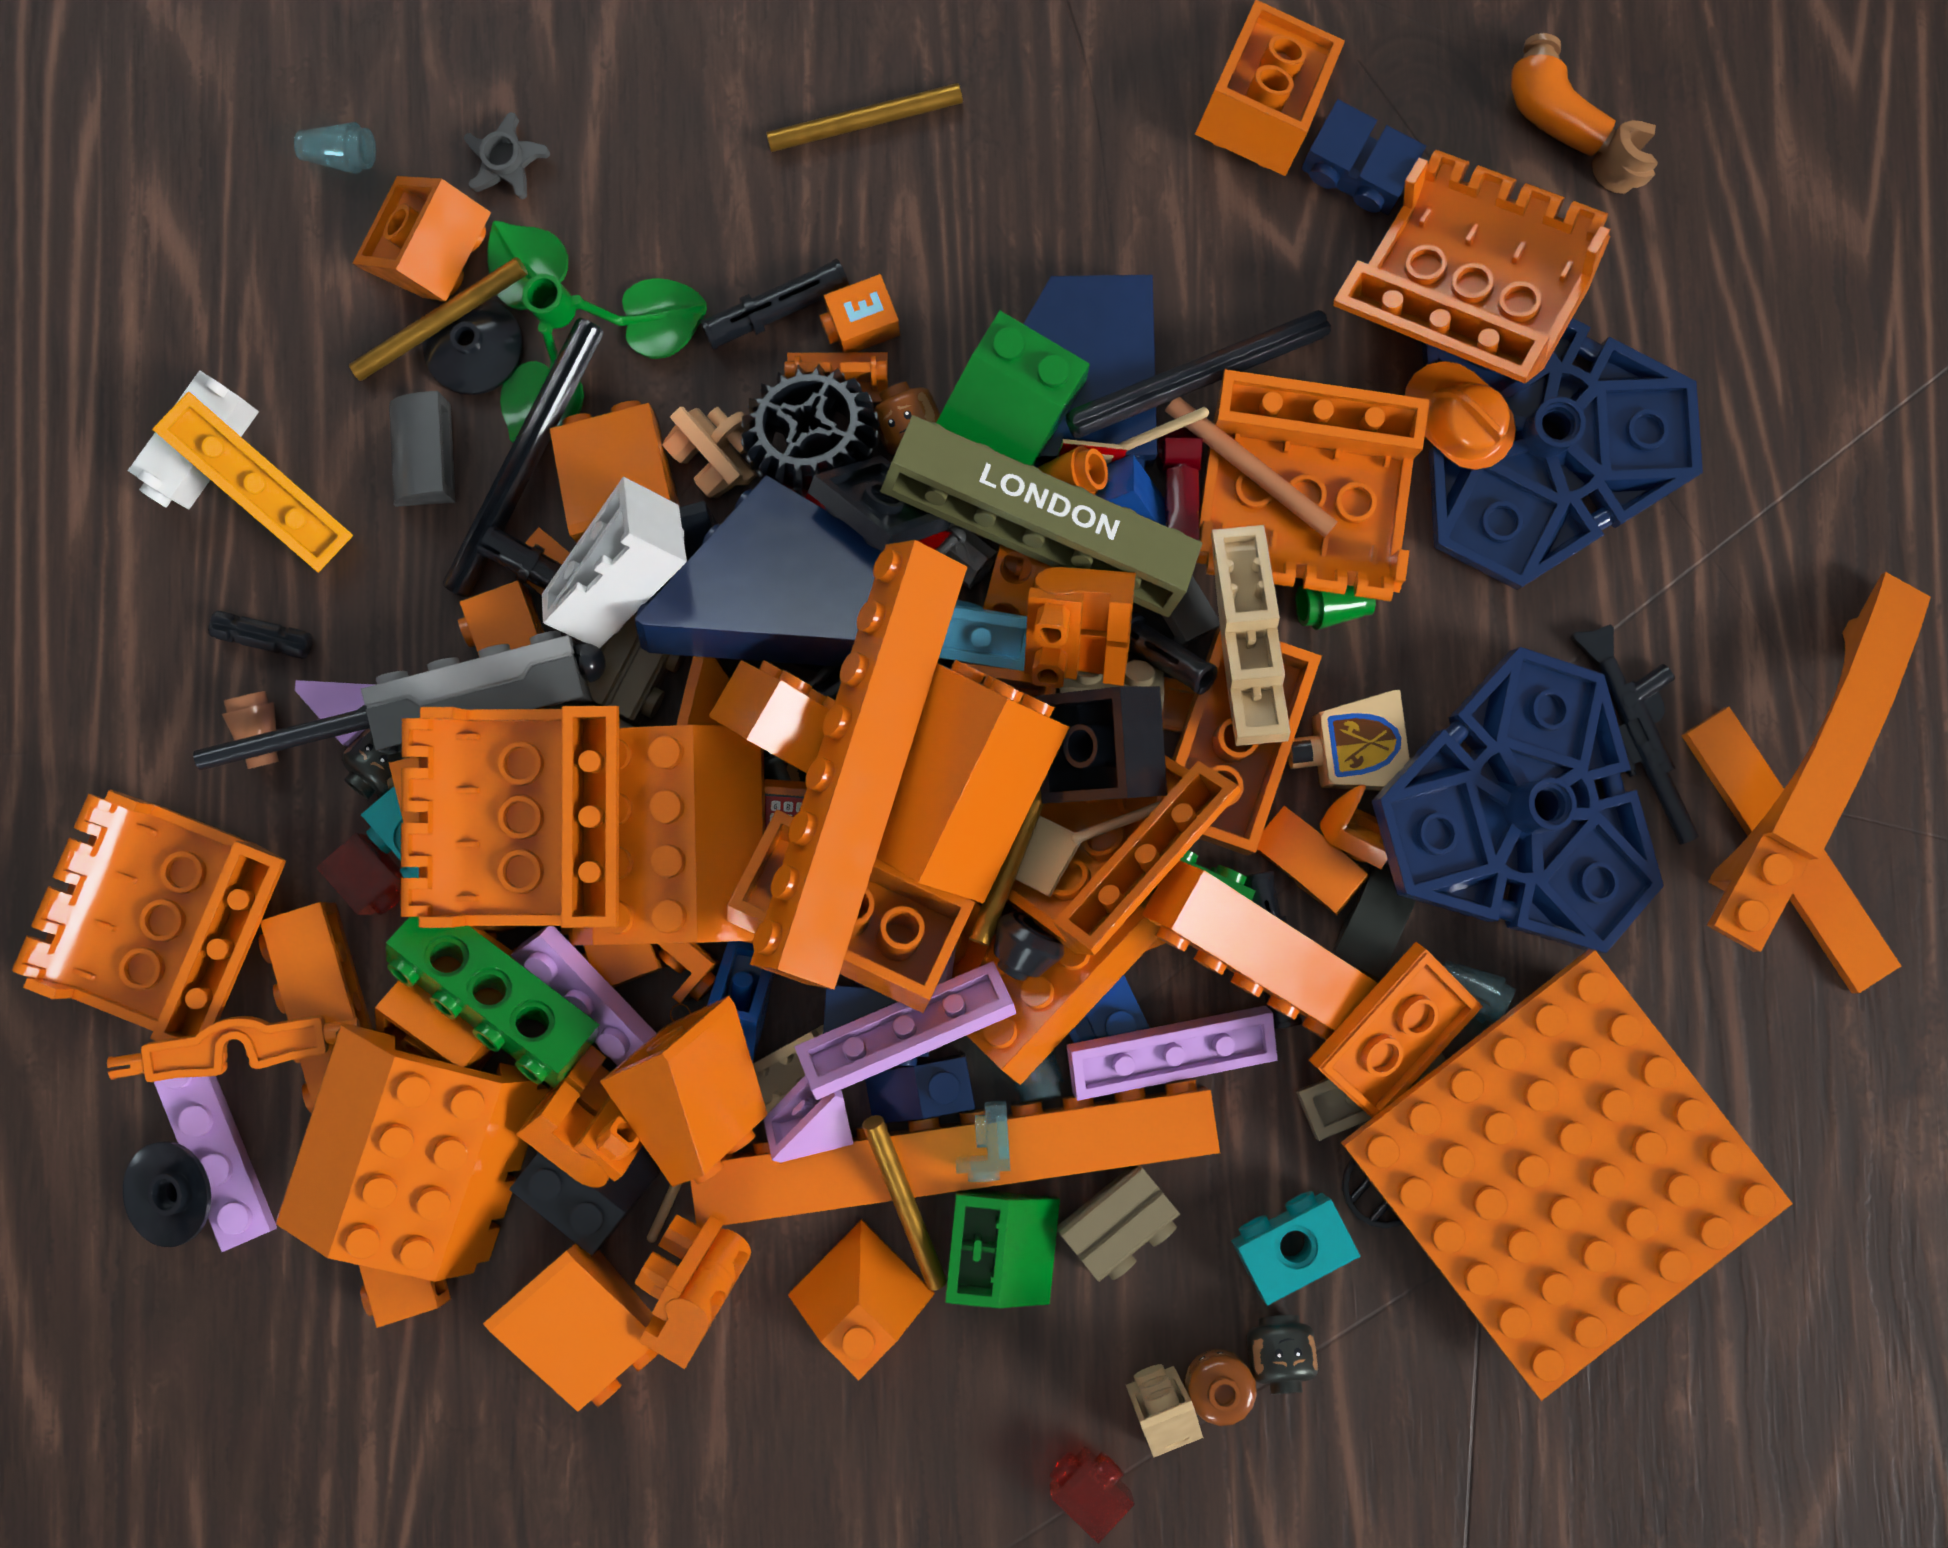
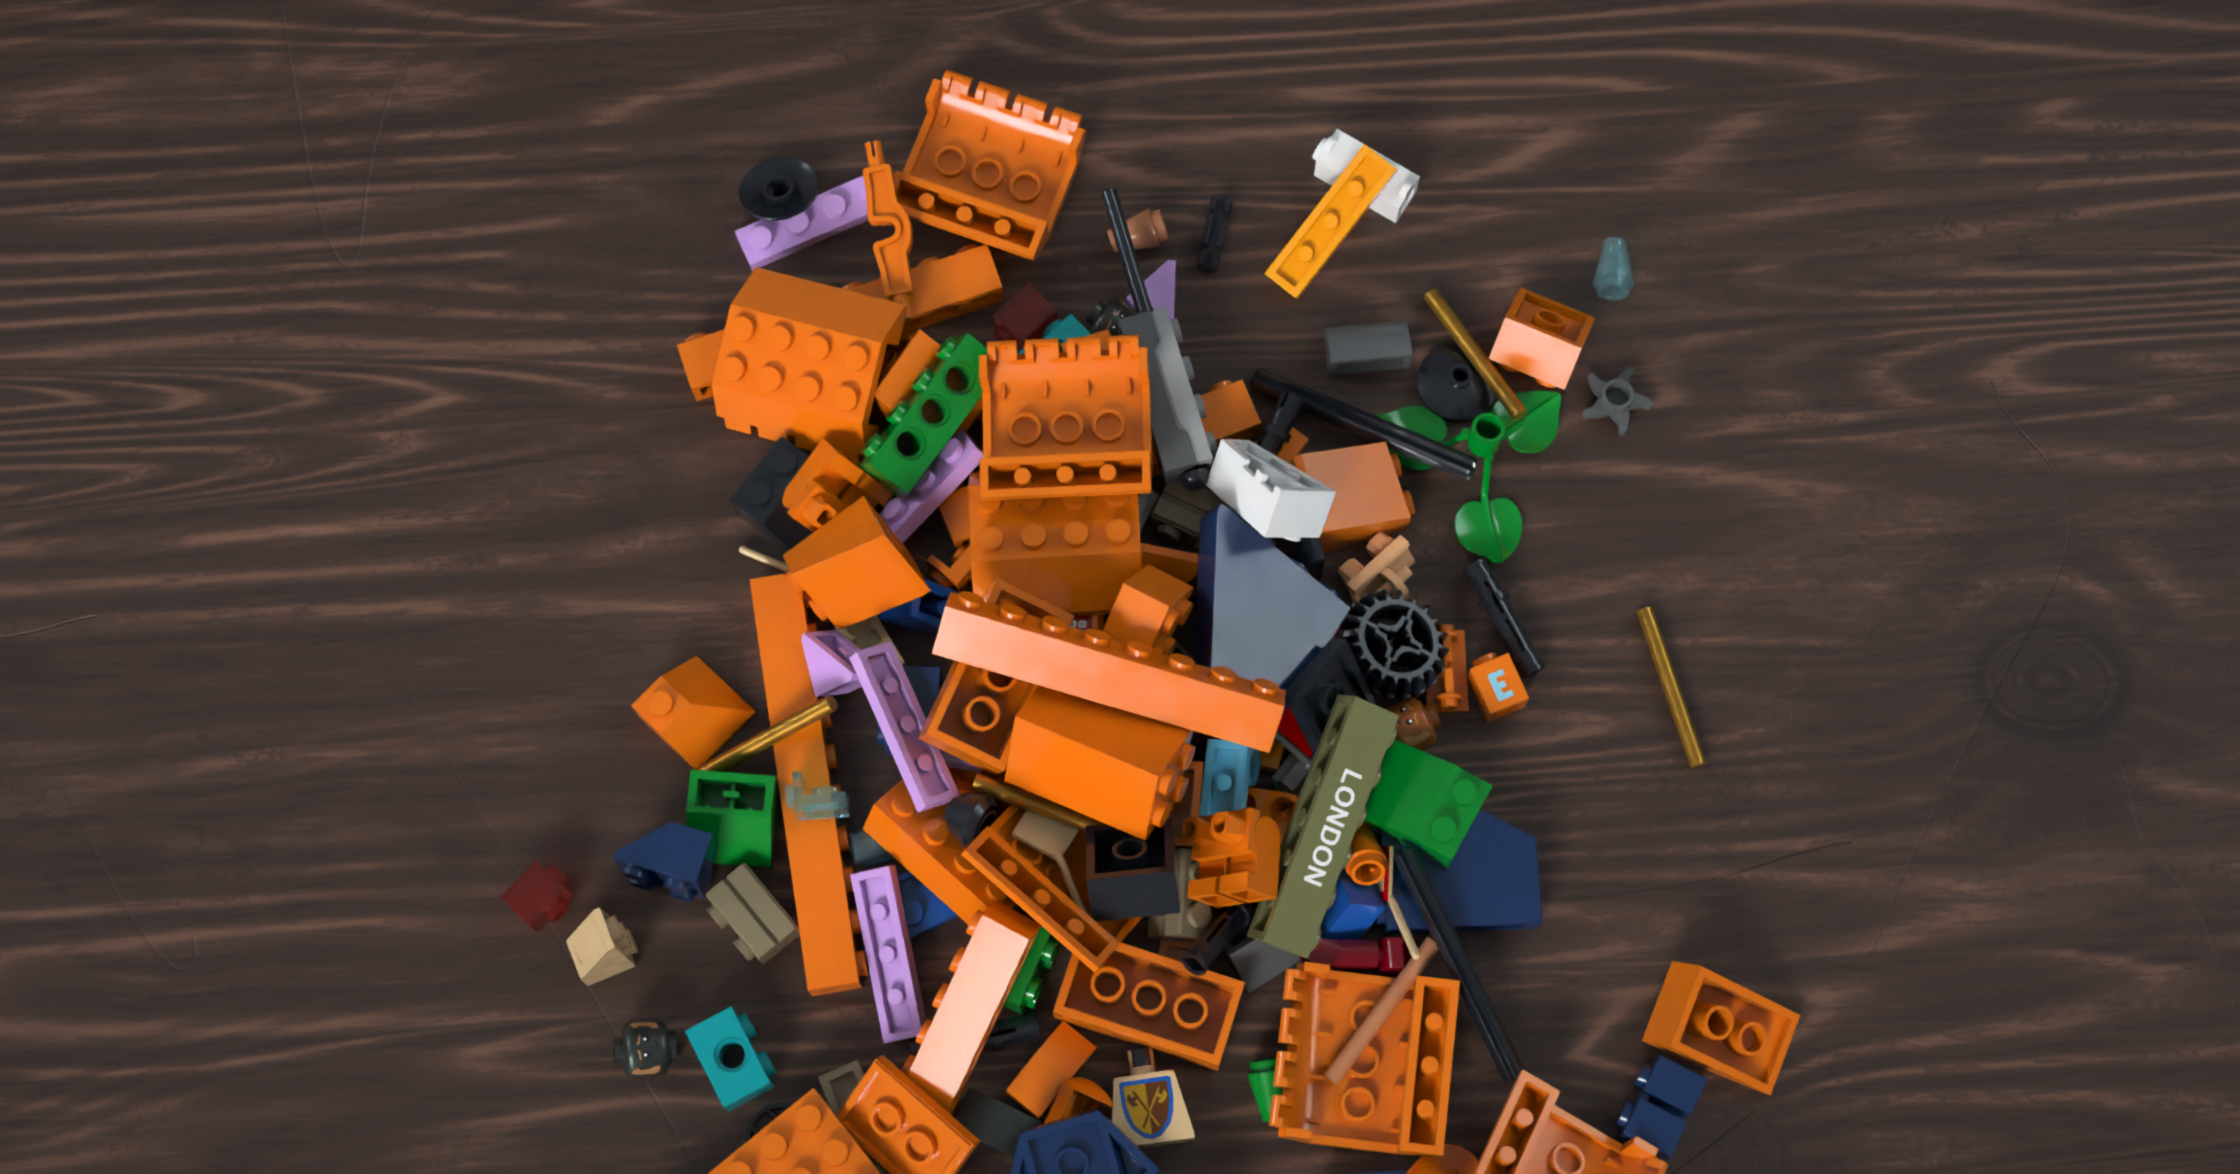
camera: 95 degrees right, 10 degrees down
(576, 1327) = (675, 494): orange slope -> none
(695, 1289) = (703, 577): orange hips -> none
(922, 1090) = (859, 755): dark blue slope -> none
(1054, 1323) = (671, 859): none -> dark blue slope
(1220, 1387) = (619, 996): dark orange head -> none
(1250, 635) = (1232, 1000): tan slope -> none

